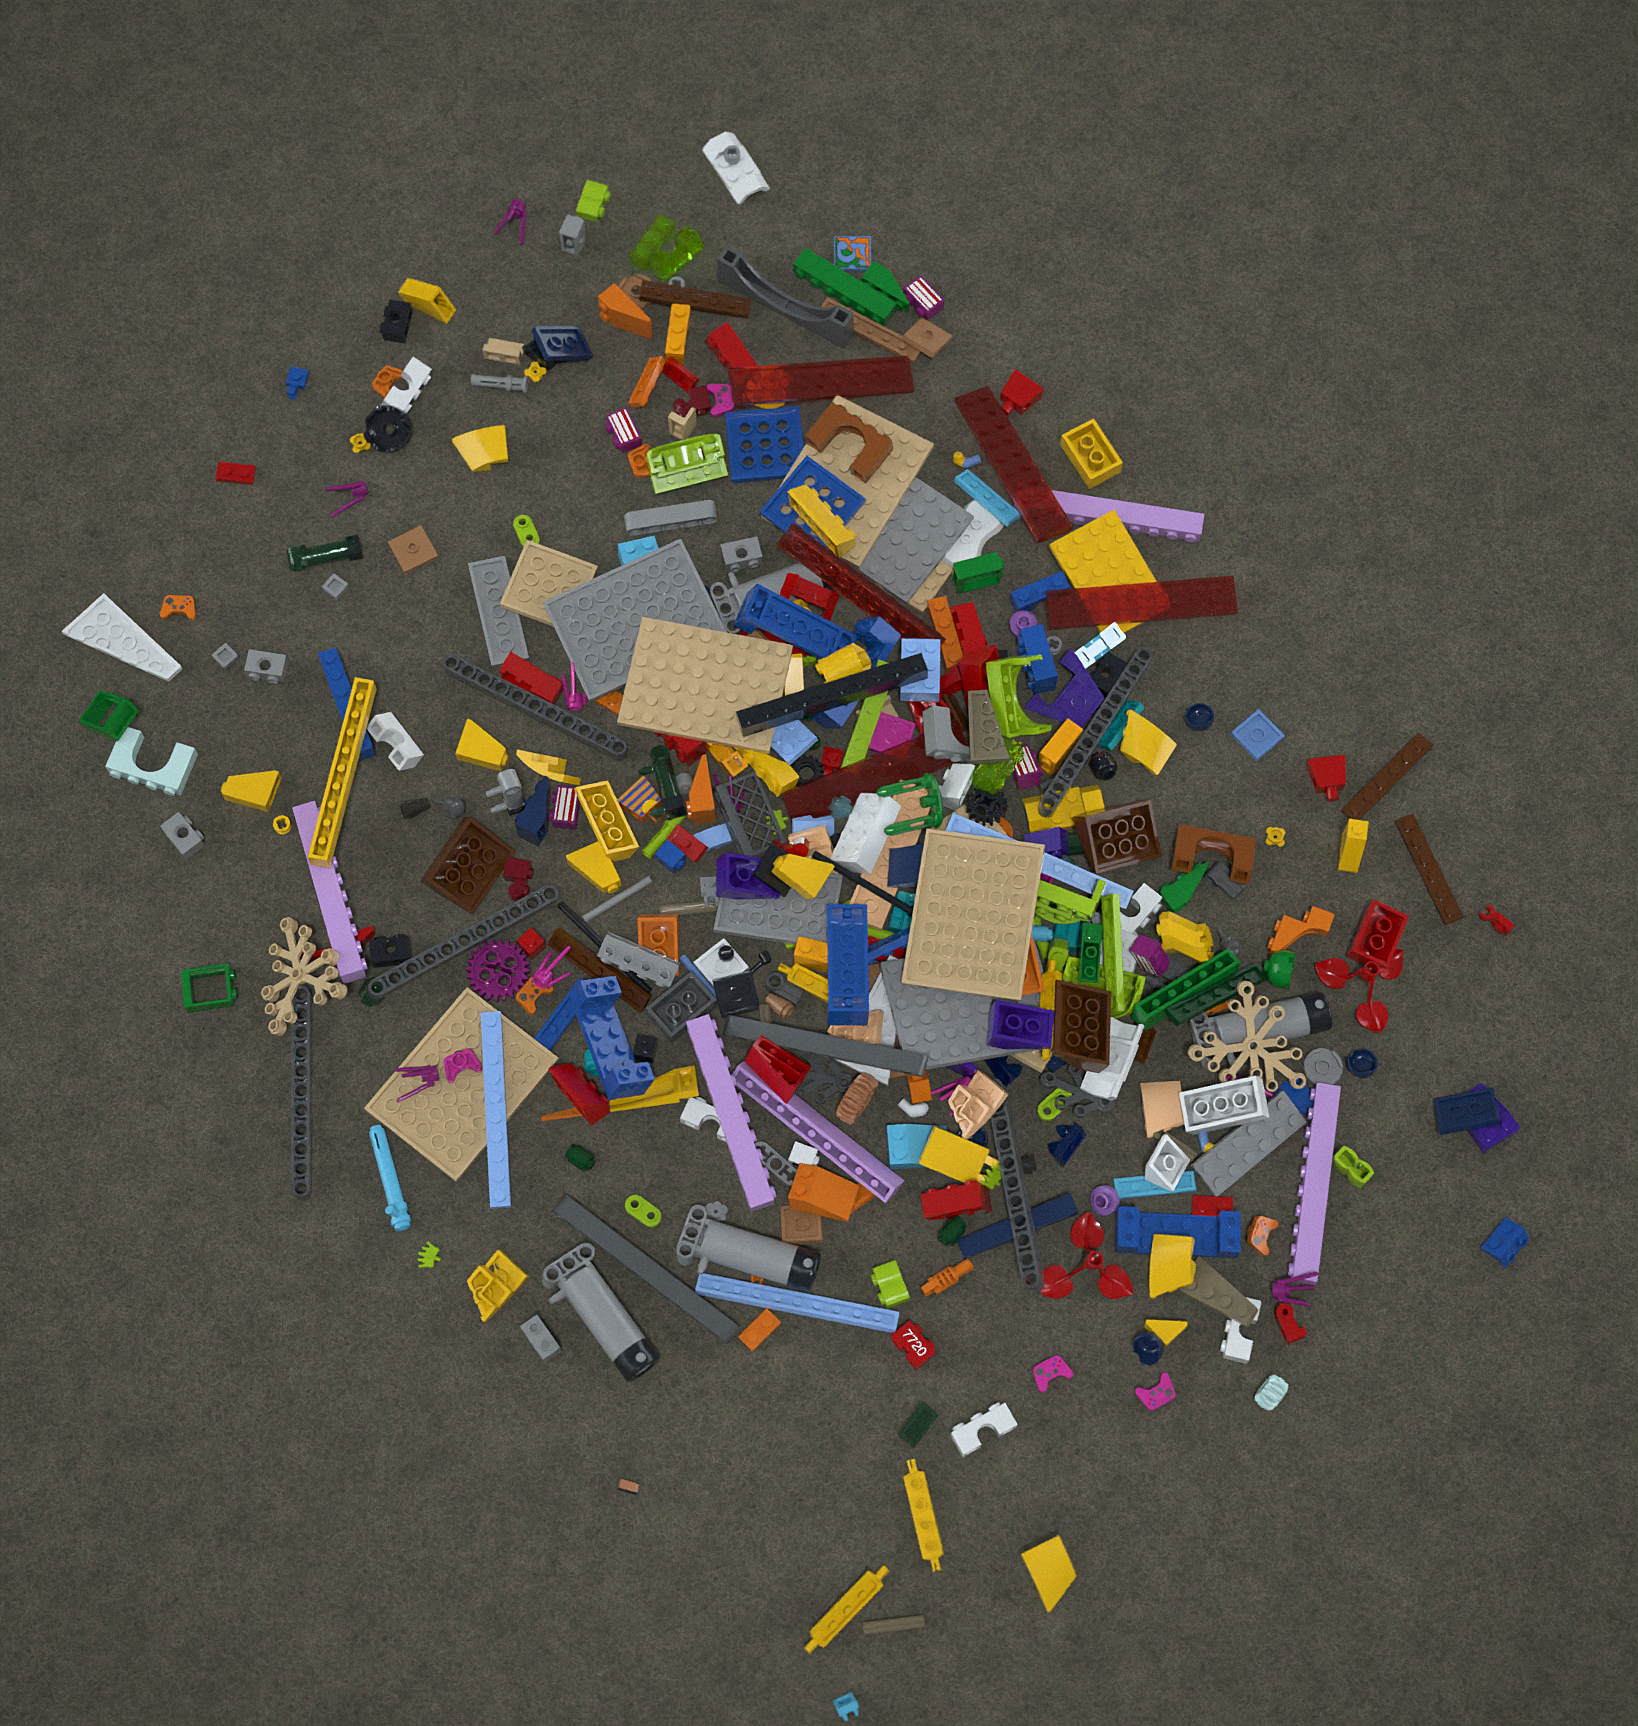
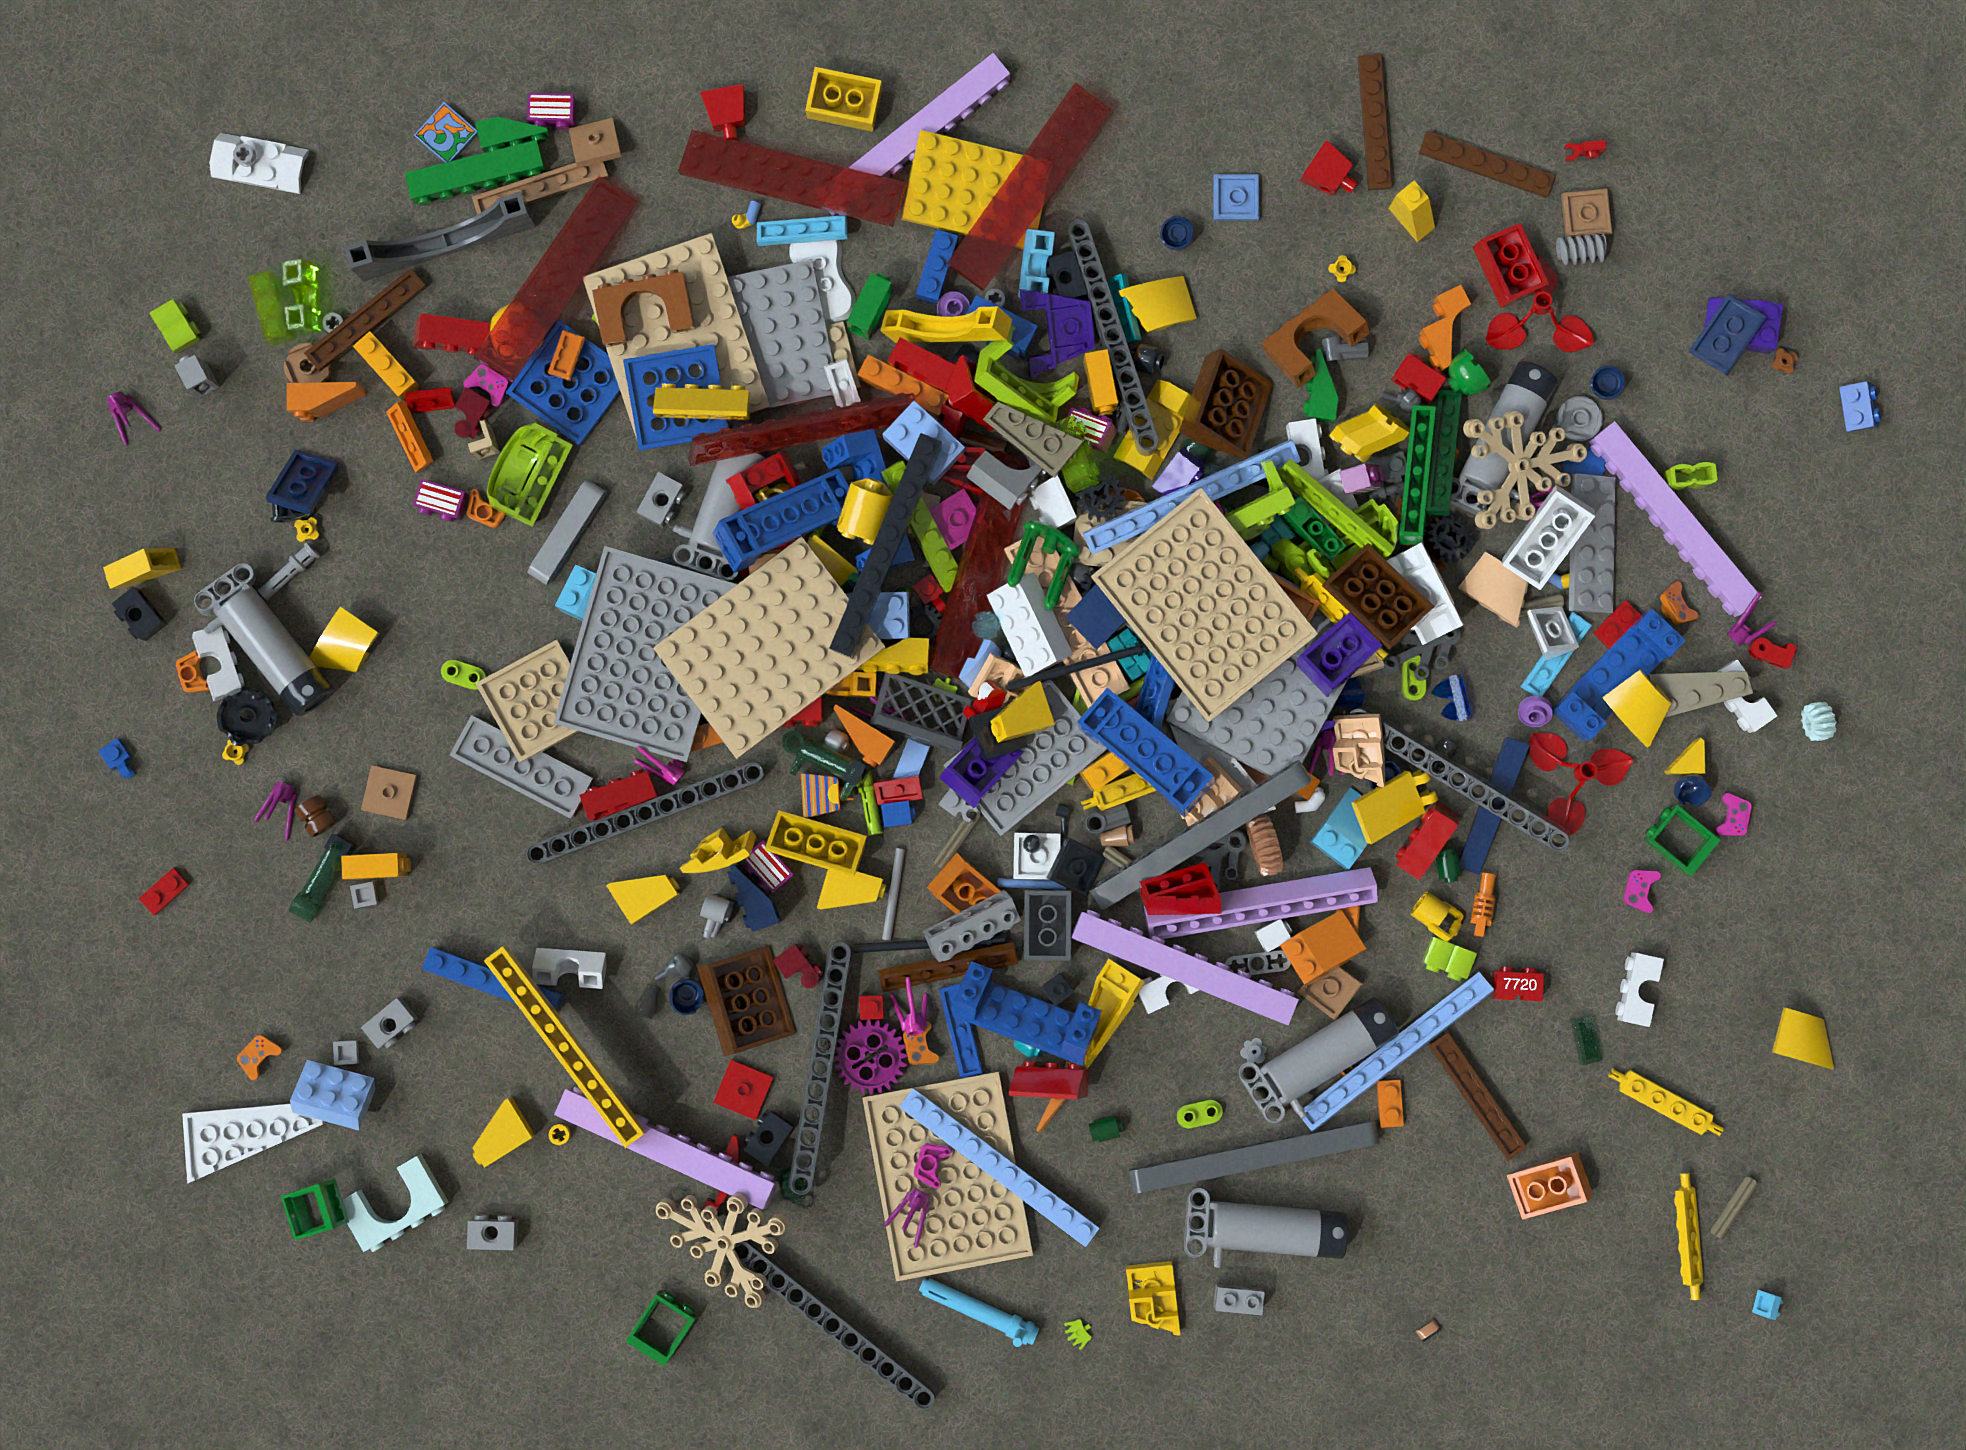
camera: 50 degrees left, 15 degrees up
(191, 667) = (332, 1095): none -> light blue brick
(359, 575) = (375, 866): none -> light orange brick
(360, 518) = (315, 816): none -> reddish brown wheel
(408, 912) = (743, 1089): none -> red plate
(438, 826) = (686, 996): none -> dark blue hair
(444, 400) = (264, 640): none -> light grey piece
(503, 351) = (258, 540): tan panel -> none
(780, 426) = (566, 355): none -> orange plate
(798, 1483) = (1550, 1186): none -> orange slope
(815, 1383) = (1477, 1096): none -> reddish brown plate
(911, 1246) = (1432, 911): none -> yellow piece
(914, 594) = (842, 383): none -> white plate
(993, 1177) = (1435, 789): lime piece -> none
(1026, 638) = (979, 325): none -> yellow arch
(1108, 1391) = (1701, 852): none -> green window
(1165, 1046) = (1449, 536): none -> black gear
(1252, 946) = (1419, 377): none -> red brick
(1431, 973) = (1581, 248): none -> light grey piece
(1458, 957) = (1586, 213): none -> medium nougat plate
(1481, 1164) = (1778, 363): none -> dark orange plate

